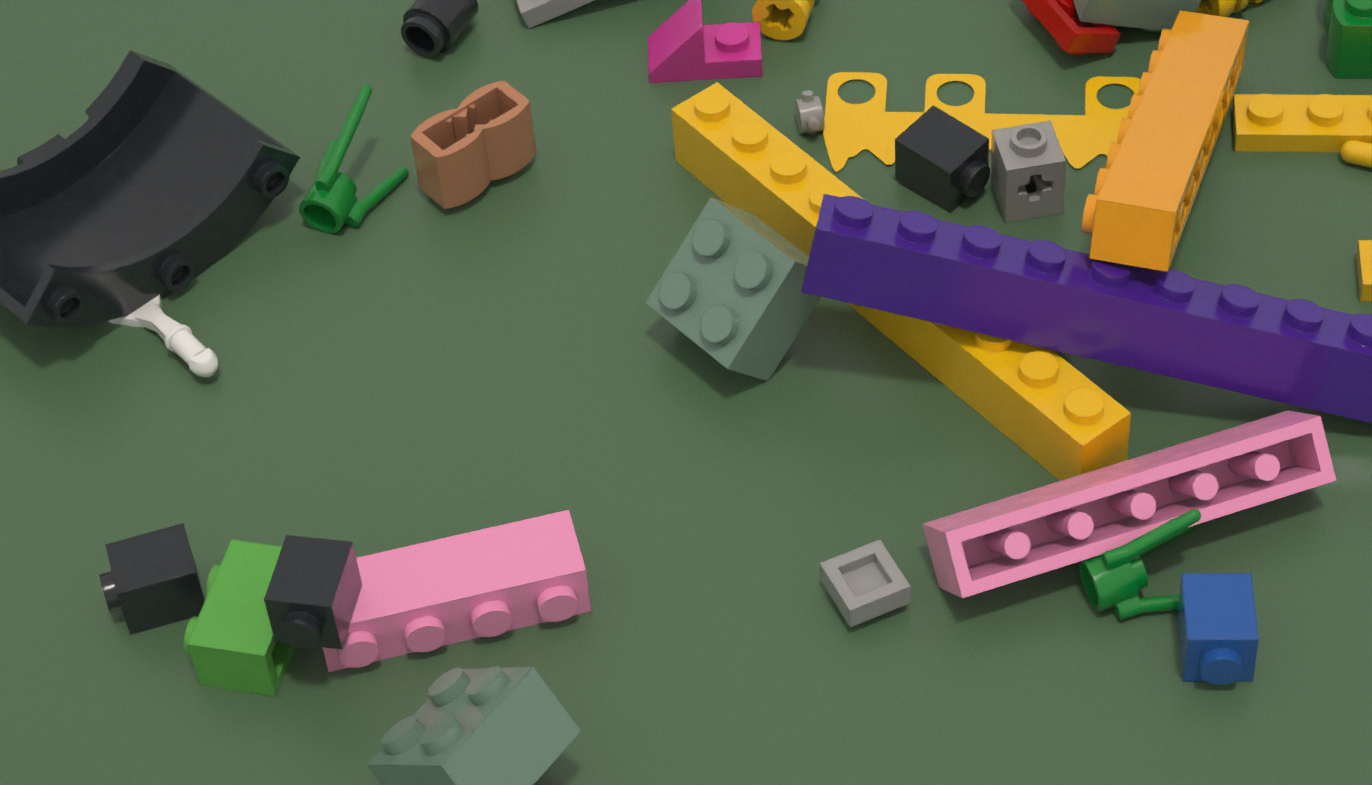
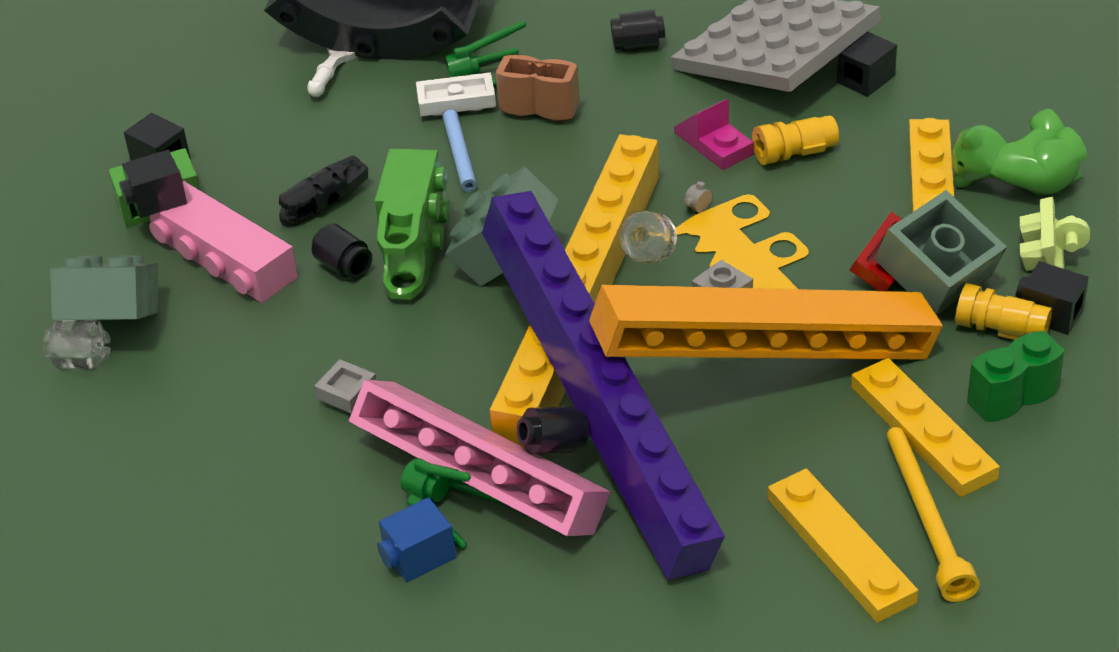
camera: 55 degrees right, 5 degrees down
(378, 232) = (456, 93): none -> white plate
(441, 445) = (321, 190): none -> black hinge
(487, 281) = (459, 150): none -> light blue piece
(595, 475) = (341, 251): none -> black brick
(630, 372) = (410, 217): none -> bright green brick
(870, 171) = (650, 250): none -> clear piece
(942, 159) = (698, 252): black brick -> none
(1166, 406) = (552, 430): none -> black brick

